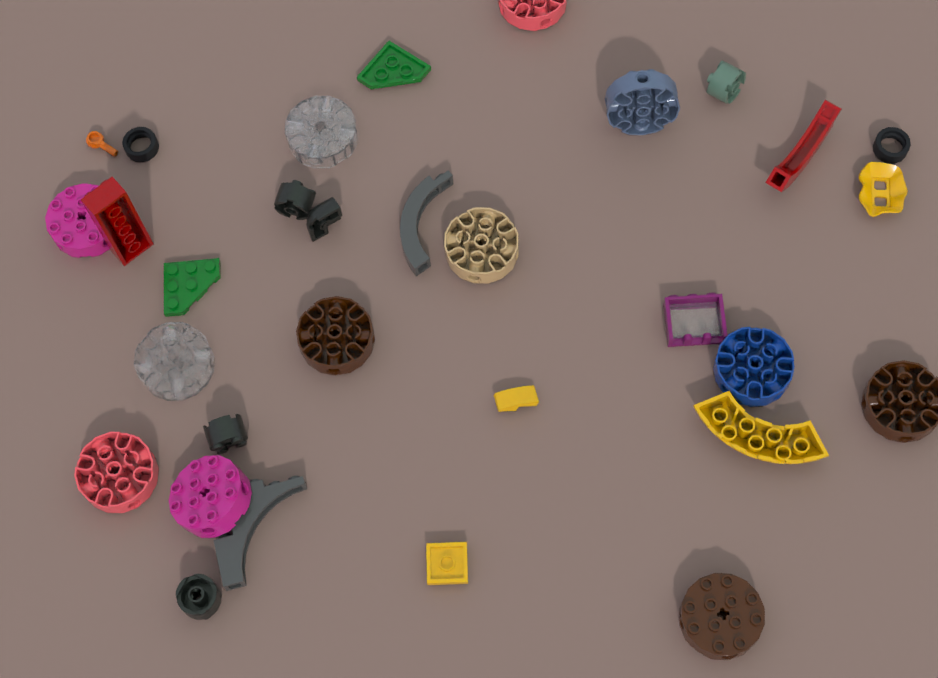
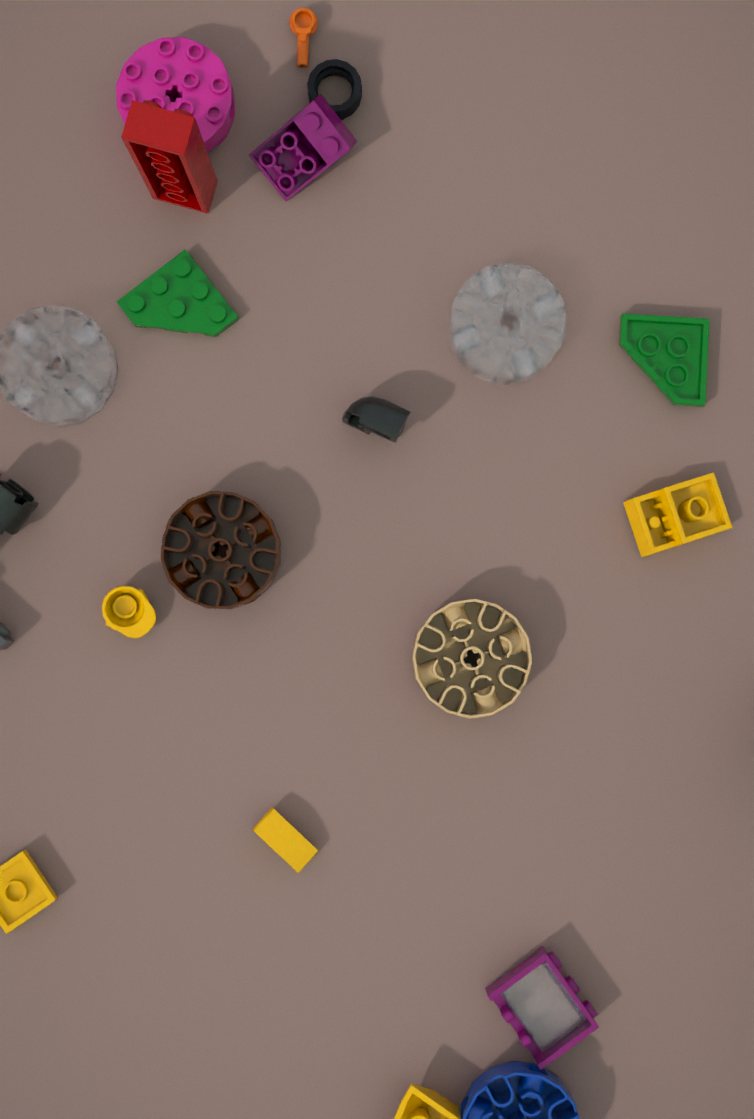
camera: 50 degrees right, 20 degrees up
(158, 174) = (303, 147): none -> magenta slope
(294, 200) = (378, 361): pearl dark grey brick -> none
(333, 404) = (128, 611): none -> yellow hat
(411, 214) = (440, 539): dark grey arch -> none
(477, 110) = (677, 514): none -> yellow slope

